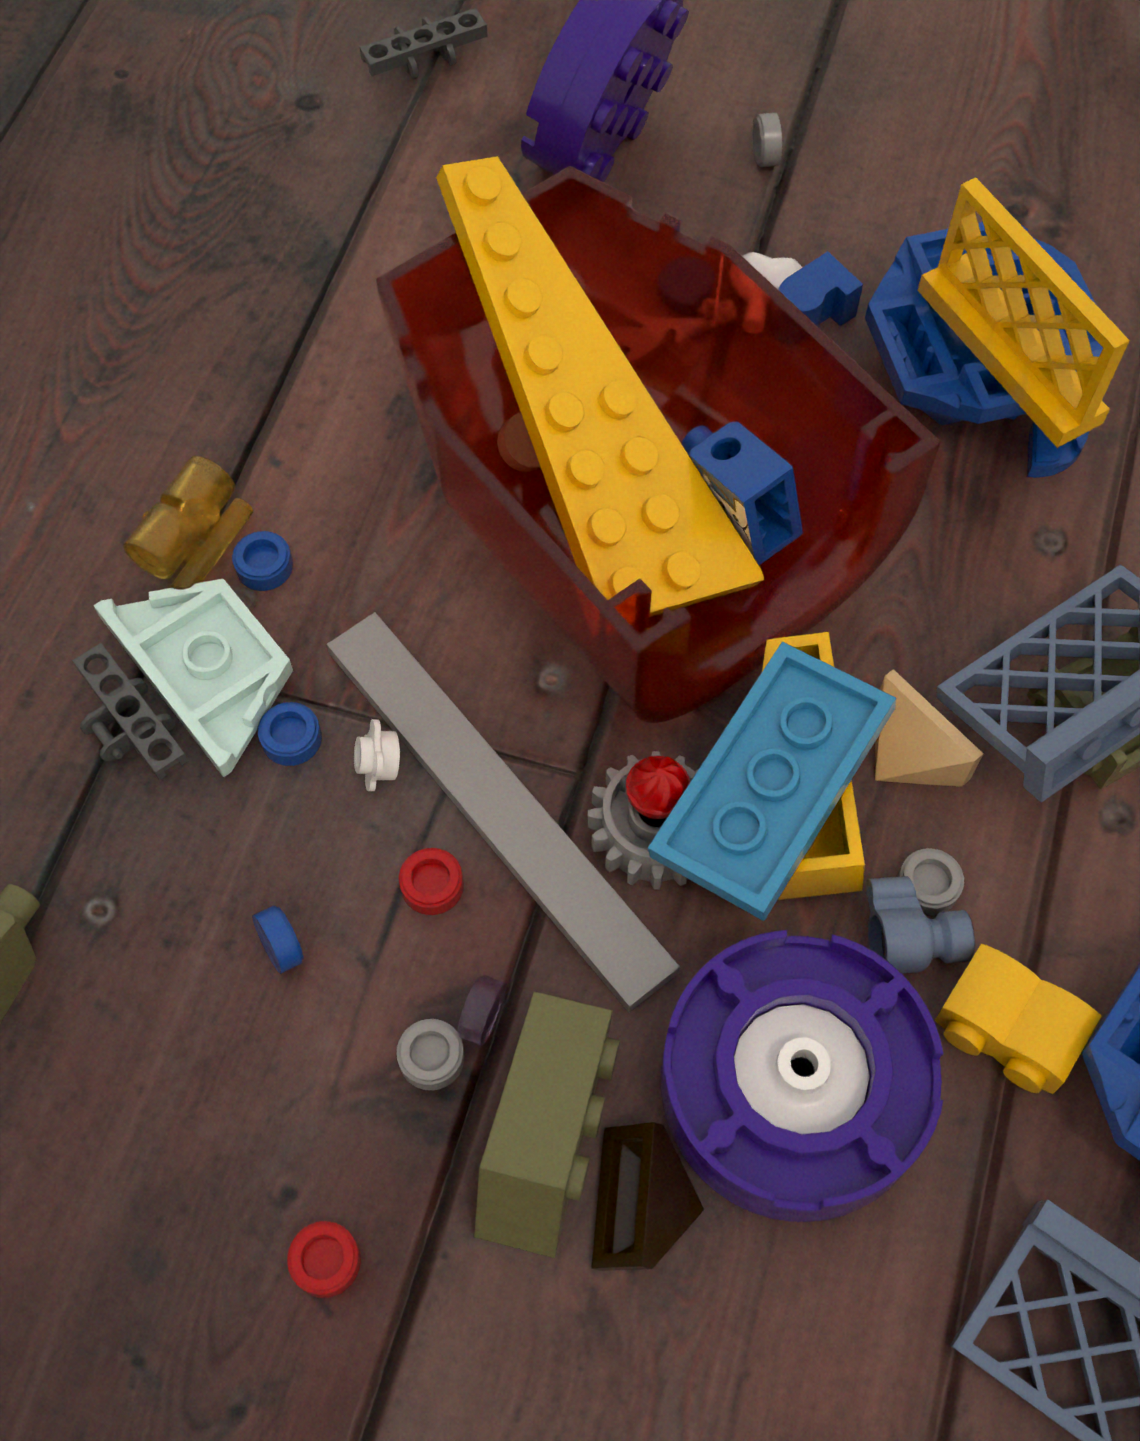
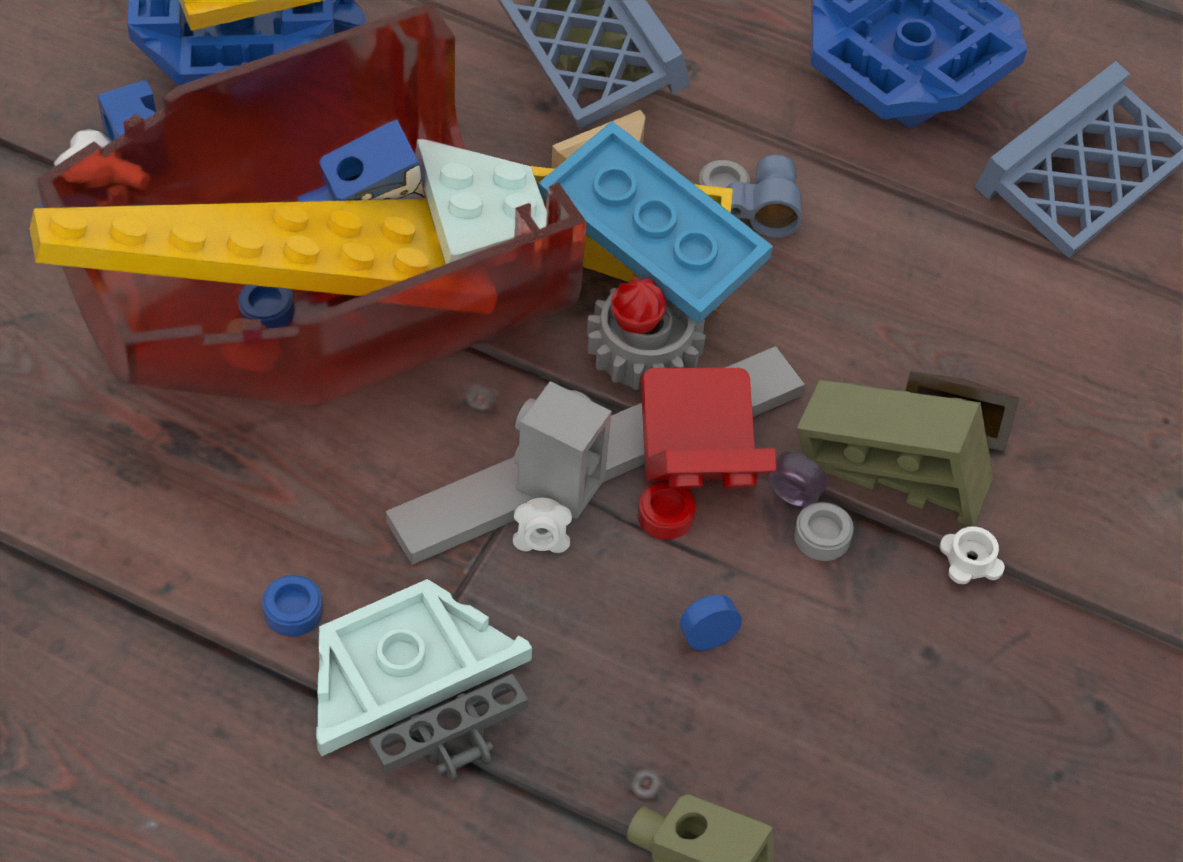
camera: 85 degrees left, 10 degrees down
(189, 524) = (243, 651): clear yellow pin -> none
(290, 733) = (499, 598): blue tile -> none
(324, 1259) = (987, 627): red tile -> none
(400, 1222) = (973, 542): none -> white plate
(432, 737) = (562, 447): none -> light grey brick
(514, 891) = (701, 428): none -> red bracket
(738, 585) = (474, 197): none -> light aqua wing
(786, 1139) = (880, 281): dark purple piece -> none
(1017, 1020) = (848, 155): yellow brick -> none

